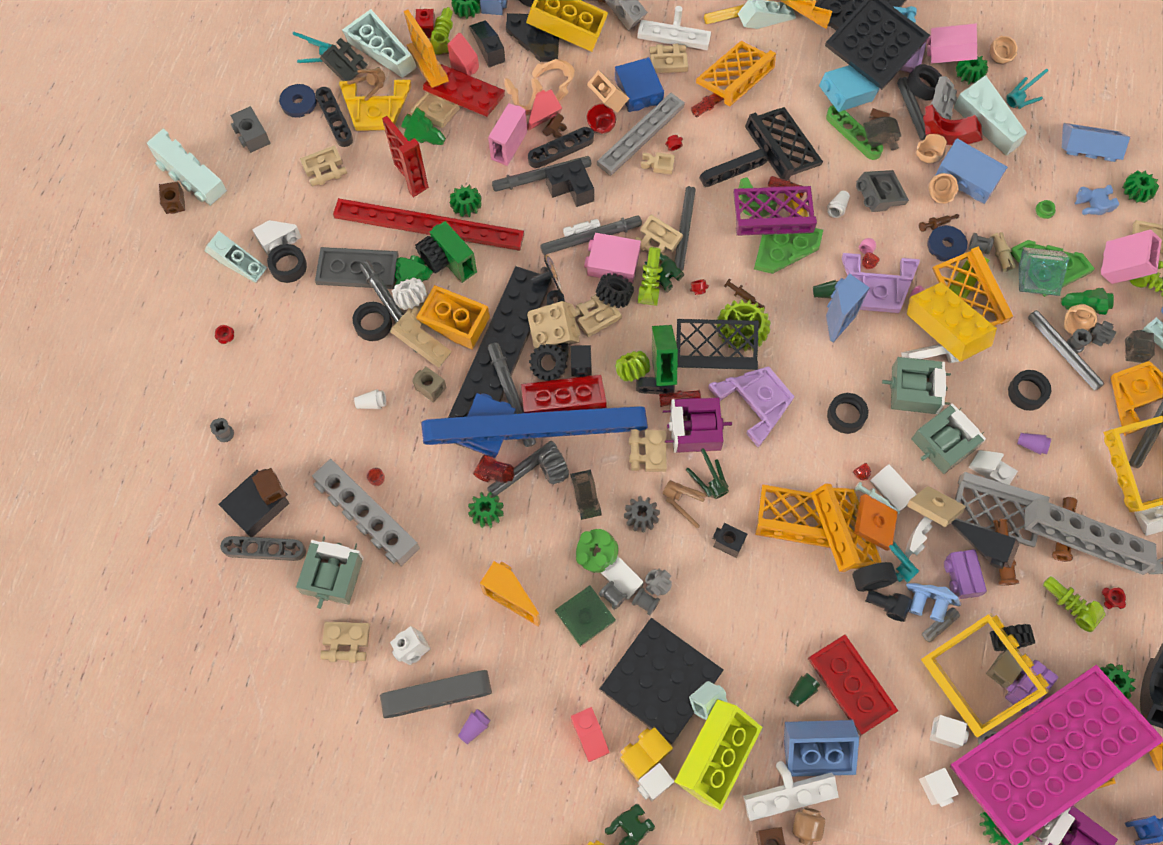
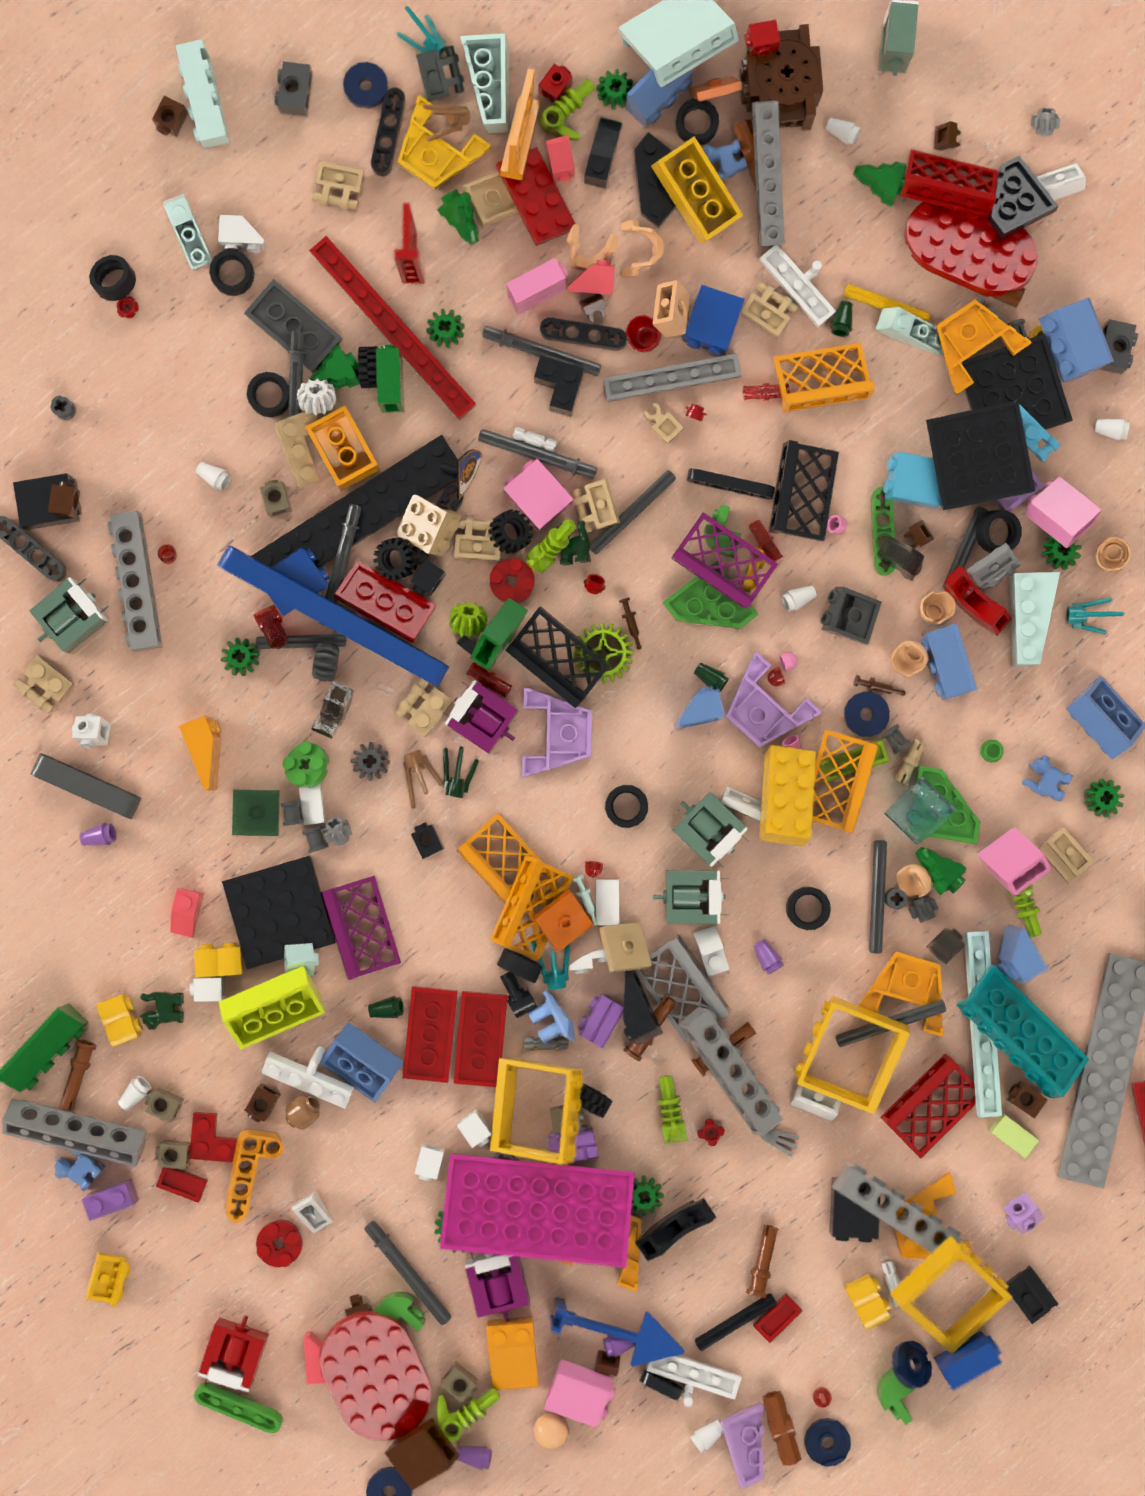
camera: 35 degrees right, 20 degrees up
(193, 312) = (105, 266): none -> black tyre
(639, 314) = (512, 567): none -> red plate
(719, 35) = (842, 320): none -> dark green cone
(724, 659) = (342, 935): none -> magenta fence
(821, 143) = (836, 519): none -> bright pink hinge
(892, 658) = (480, 1038): none -> red plate

